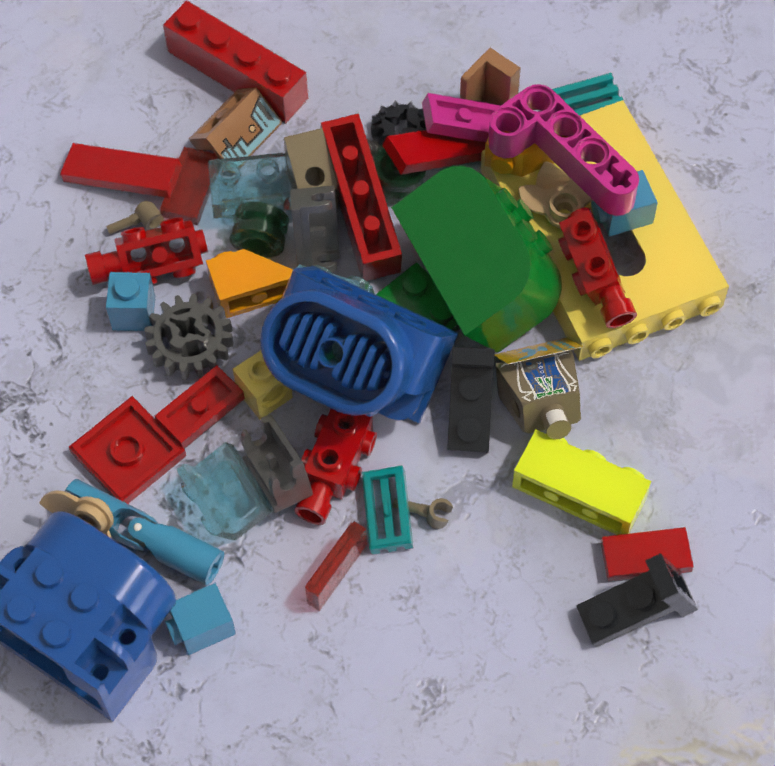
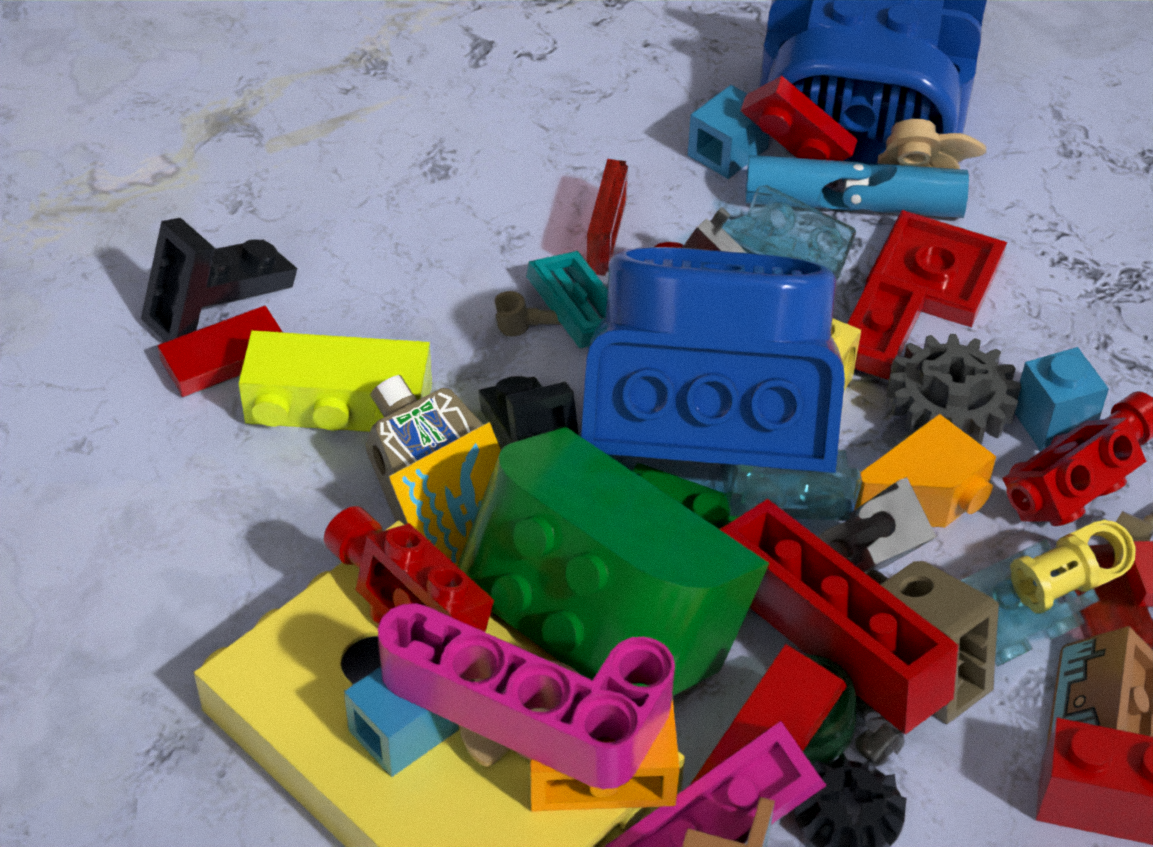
camera: 155 degrees right, 15 degrees down
(174, 571) = (797, 122): none -> red plate
(192, 185) = (1075, 565): none -> light yellow connector
(259, 229) = (965, 535): clear green wheel -> none

